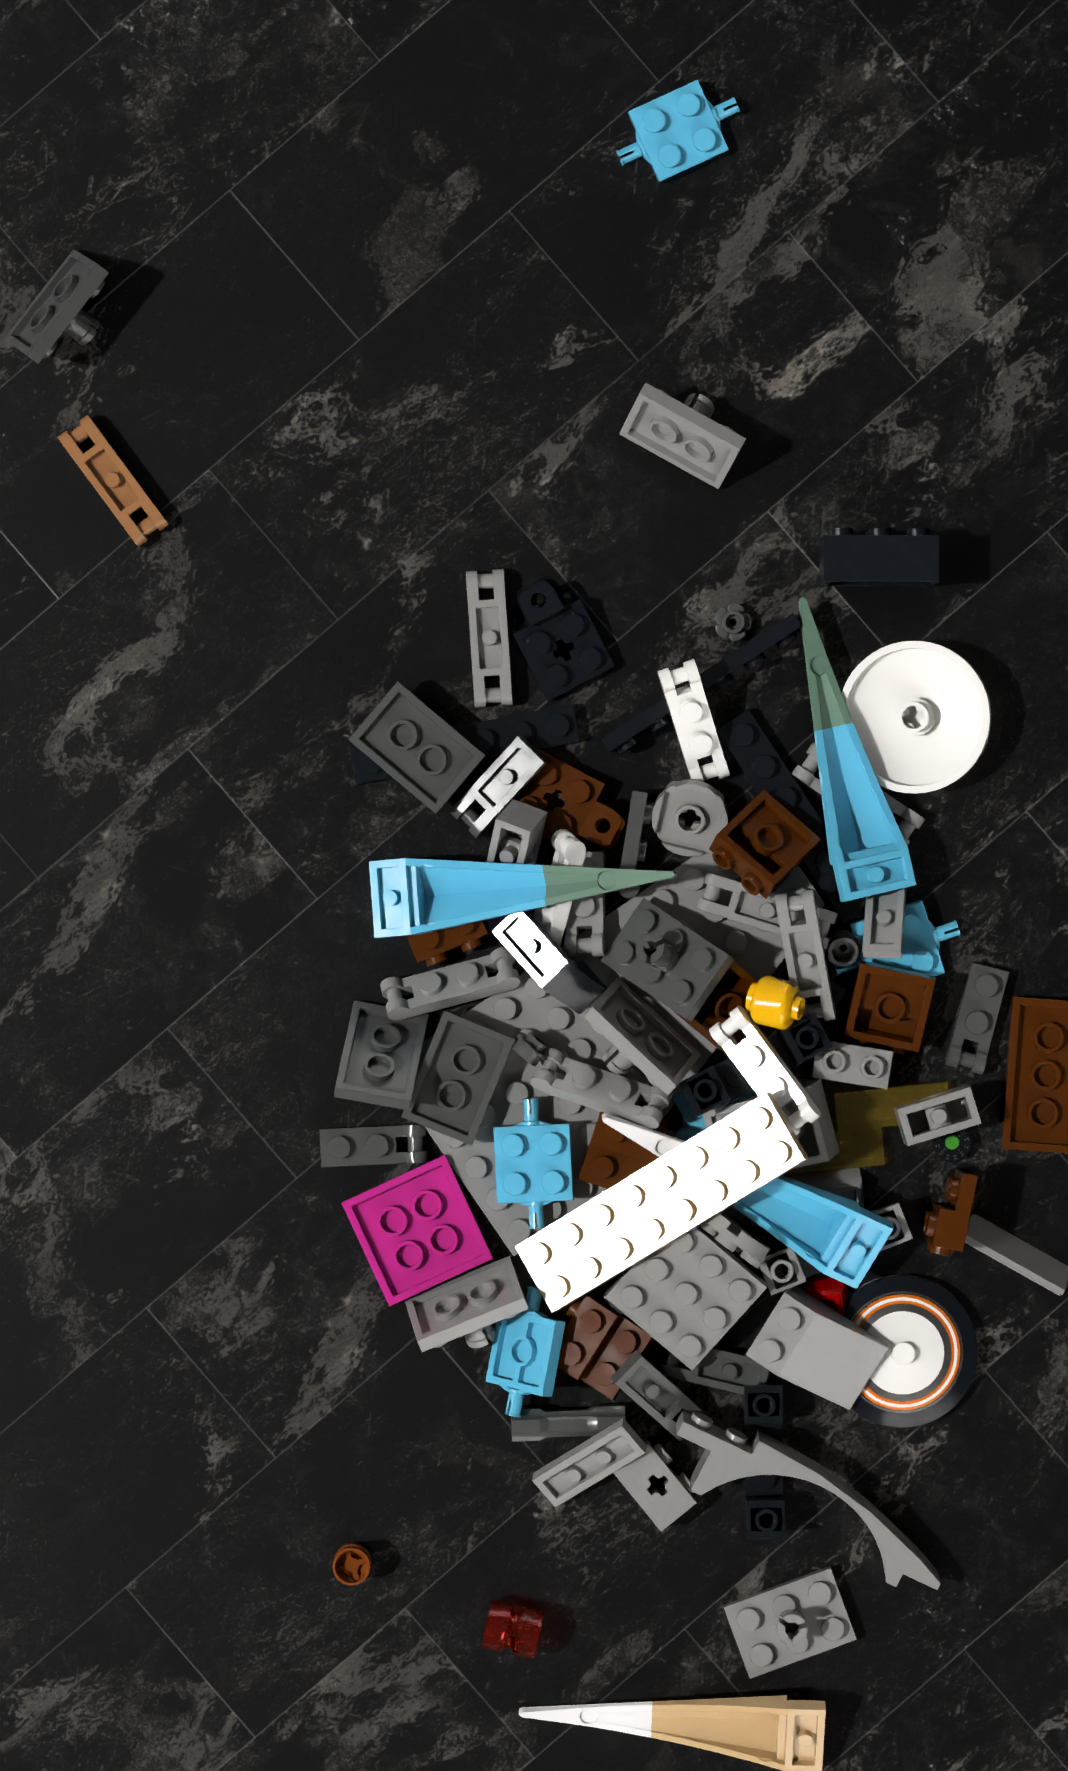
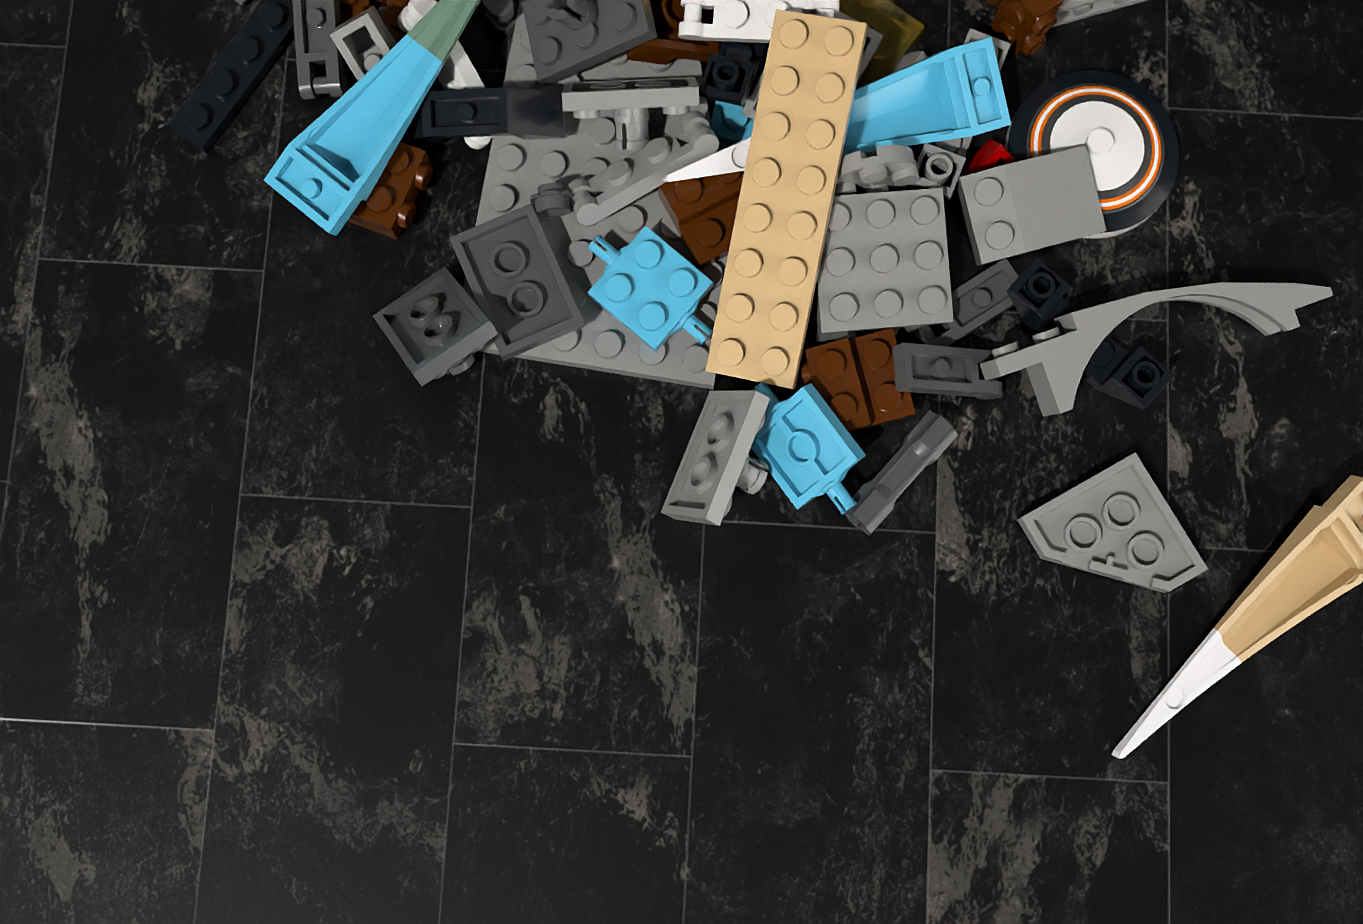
camera: 50 degrees left, 10 degrees down
(353, 1570) = (857, 778): dark orange wheel -> none
(371, 1145) = (506, 416): dark grey plate -> none
(416, 747) = (216, 62): dark grey plate -> none
(417, 1230) = (612, 444): dark pink plate -> none
(450, 985) = (441, 219): light grey plate -> none
(512, 1629) = (1040, 688): clear red wheel -> none
(587, 914) = (493, 59): light grey plate -> none
(589, 1462) = (952, 482): light grey plate -> none
(659, 1586) = (1116, 529): none -> light grey plate
(661, 1506) = (999, 458): light grey brick -> none
(789, 1622) = (1244, 451): light grey plate -> none

